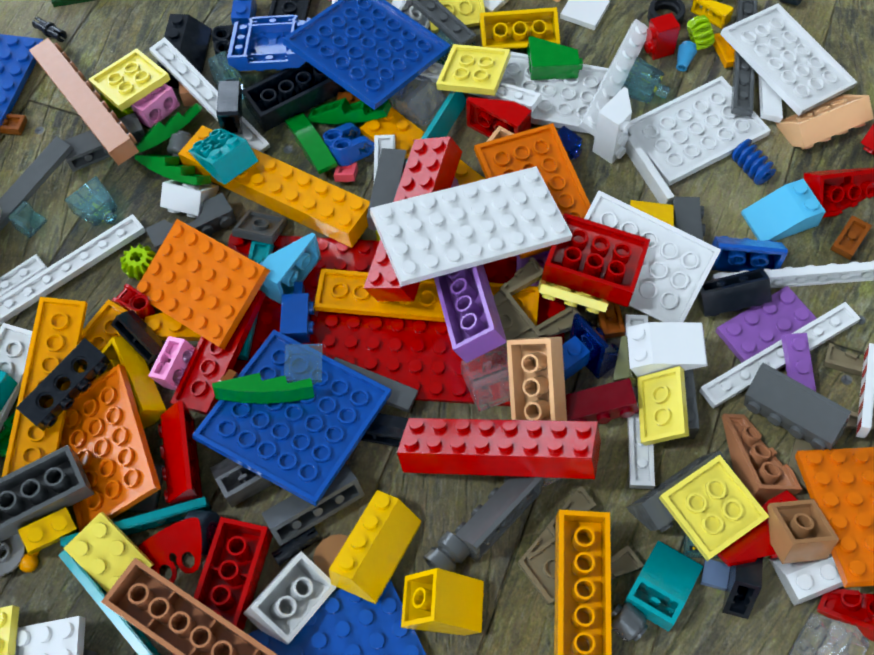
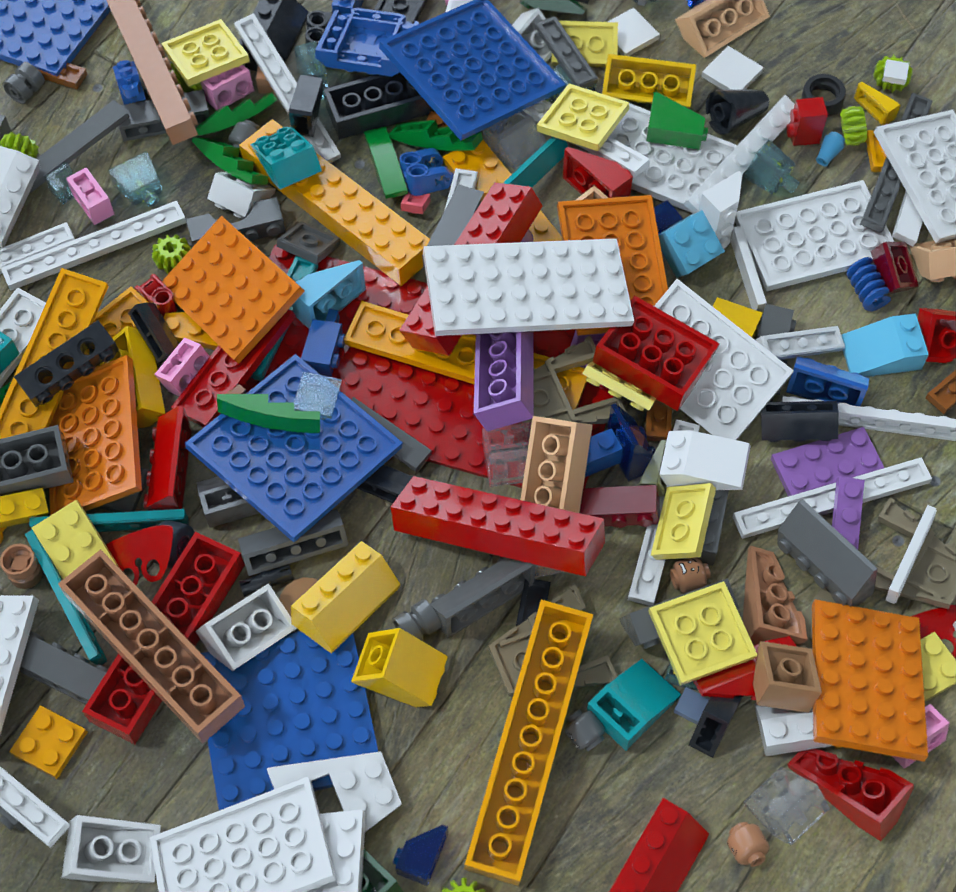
camera: 10 degrees right, 0 degrees up
(53, 226) = (90, 196): none -> bright pink brick
(61, 586) = (21, 566): none -> nougat wheel
(66, 118) = (128, 82): none -> blue hinge
(545, 508) = (531, 599): none -> black tile
(595, 159) = (689, 244): none -> medium azure brick
(596, 38) = (734, 108): none -> black cone
(678, 453) = (689, 574): none -> nougat head
(717, 223) = (803, 342): none -> white tile
(771, 142) = (895, 266): none -> dark red slope

